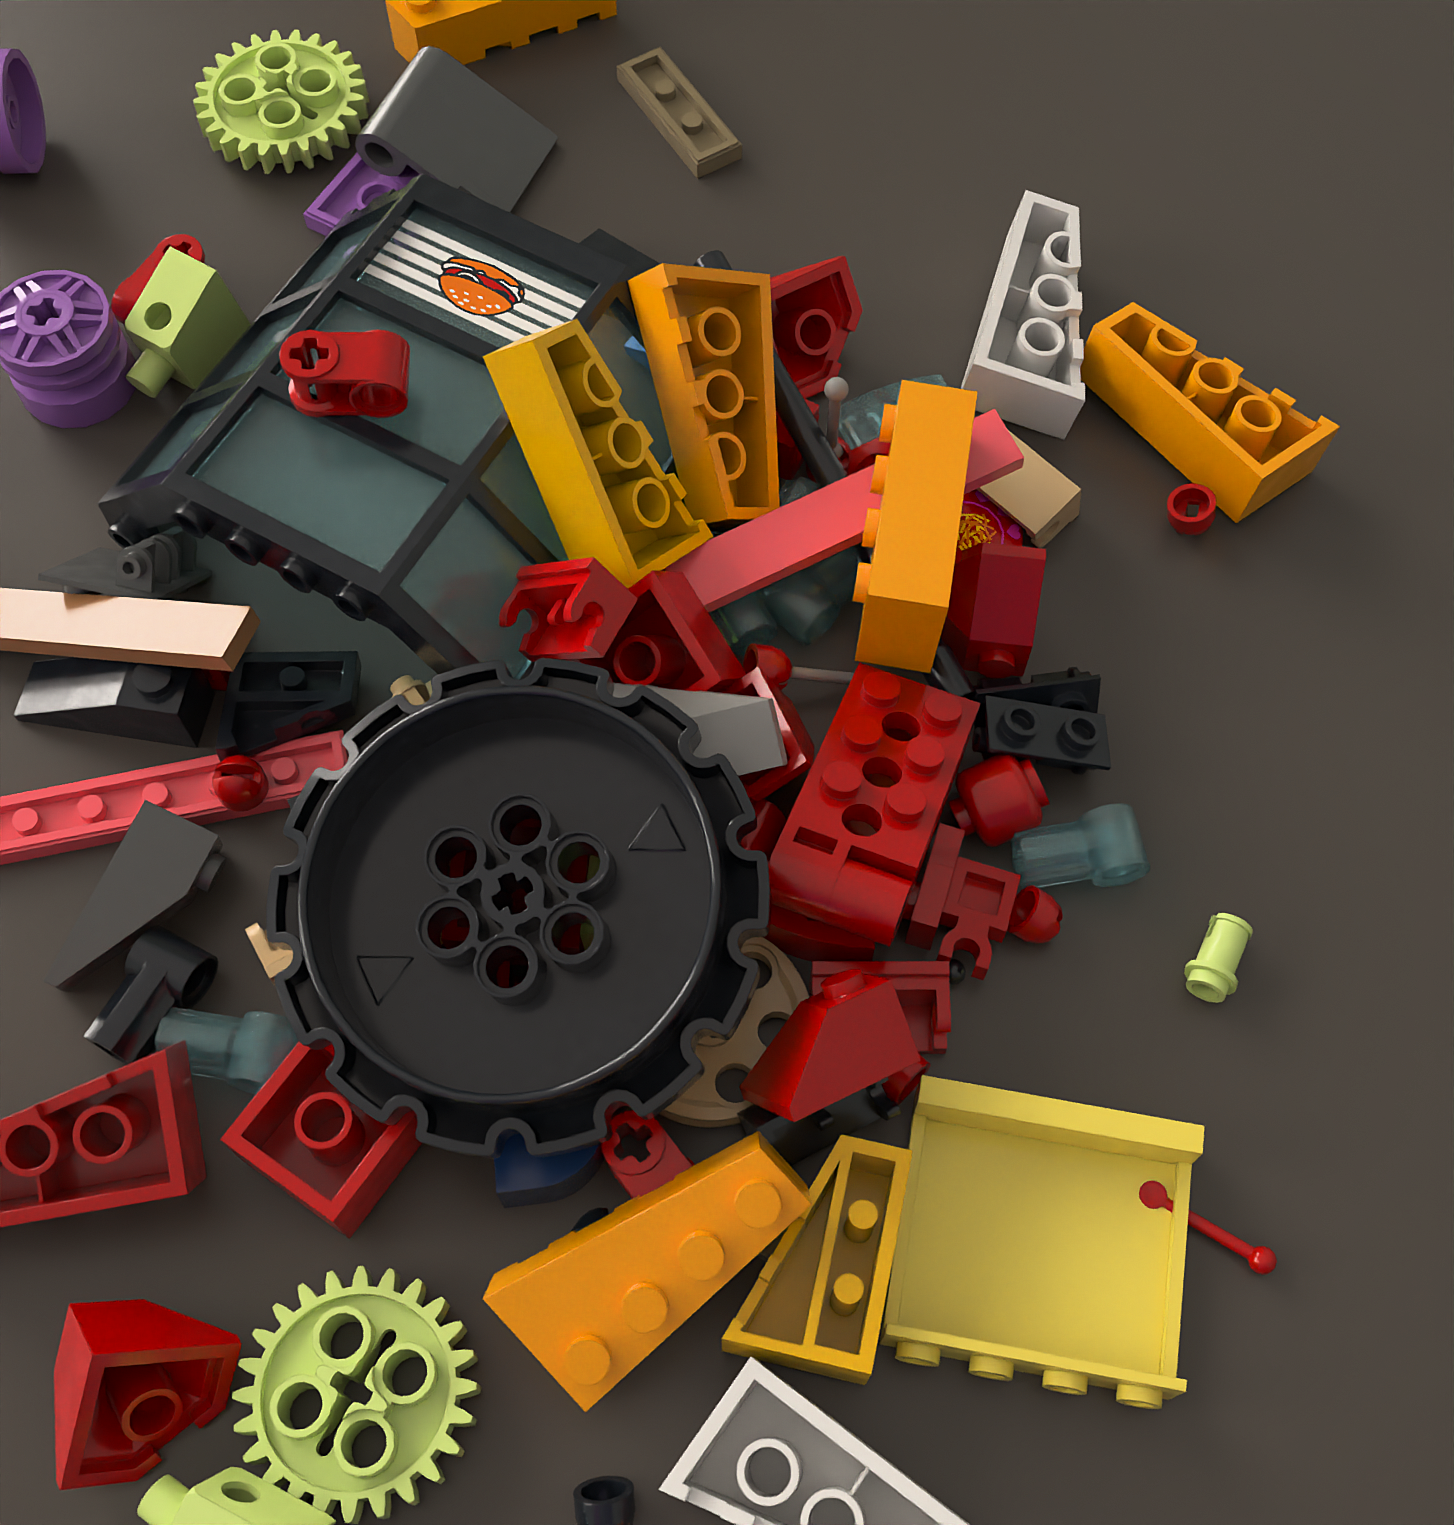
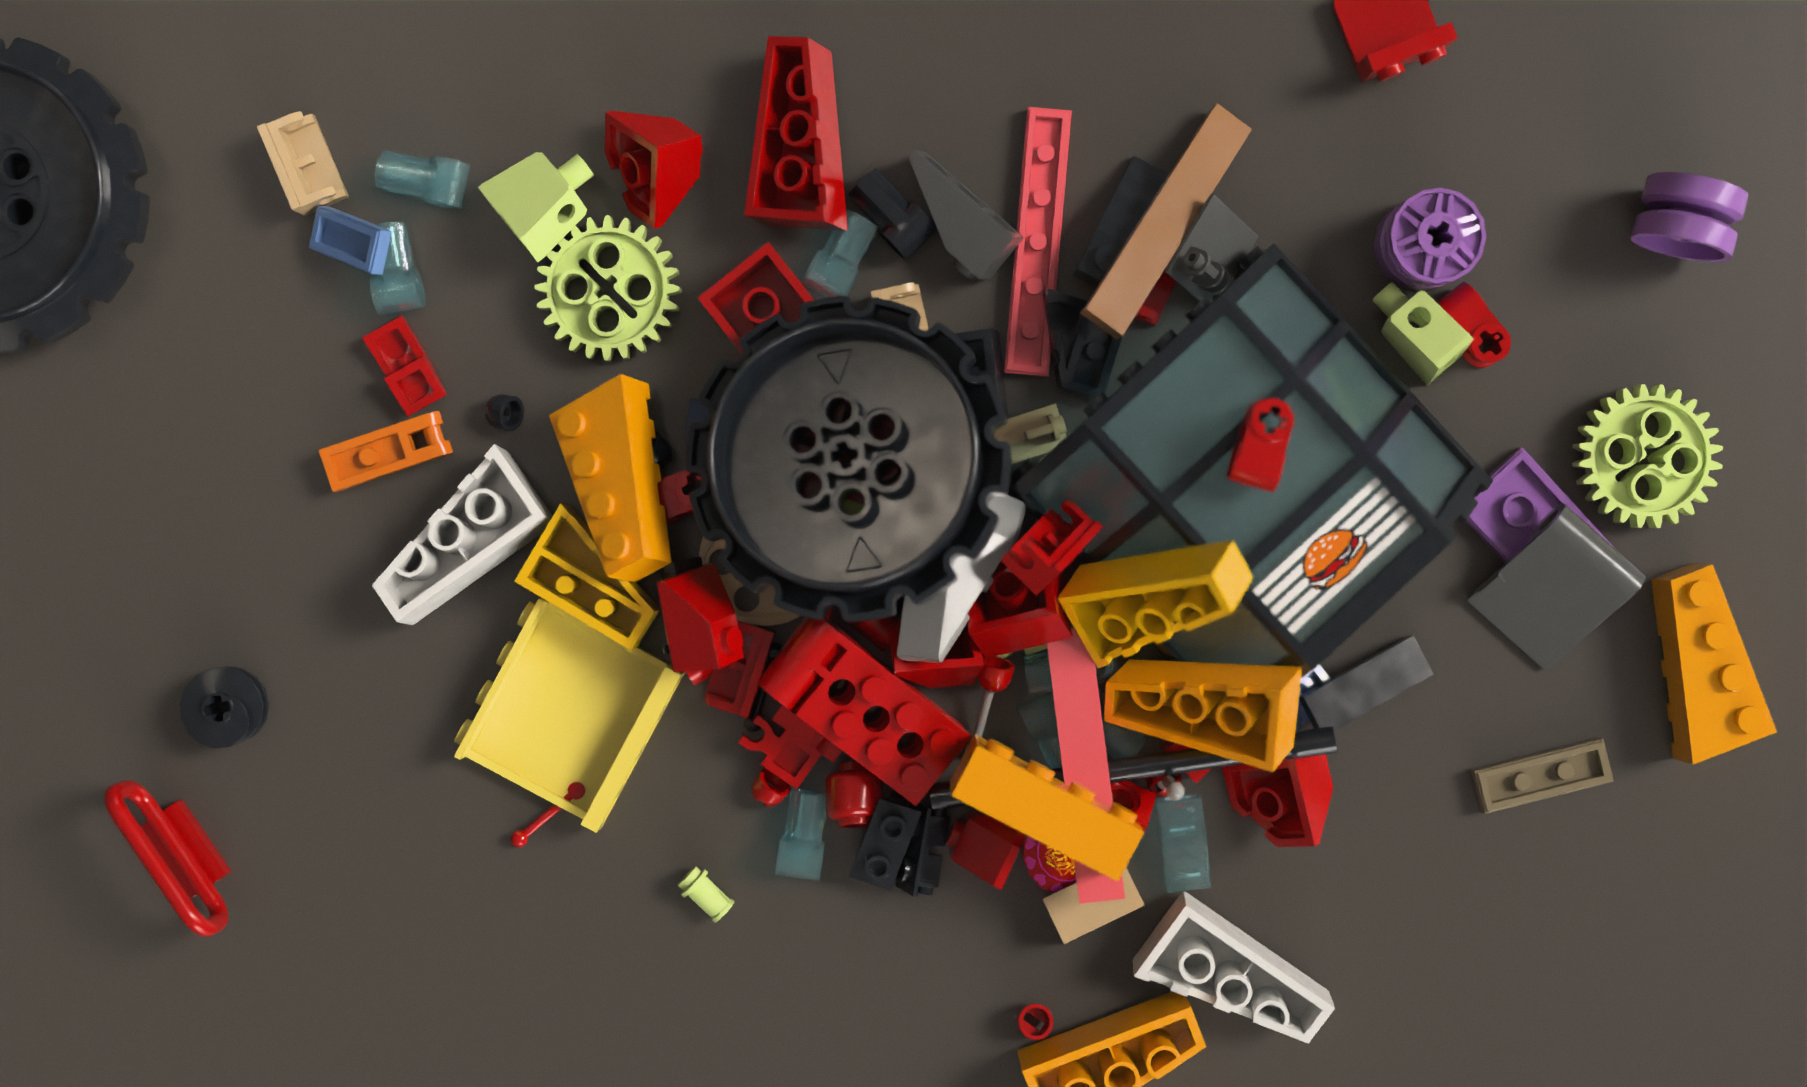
camera: 110 degrees right, 25 degrees up
(240, 792) = (1014, 296): red hinge -> none

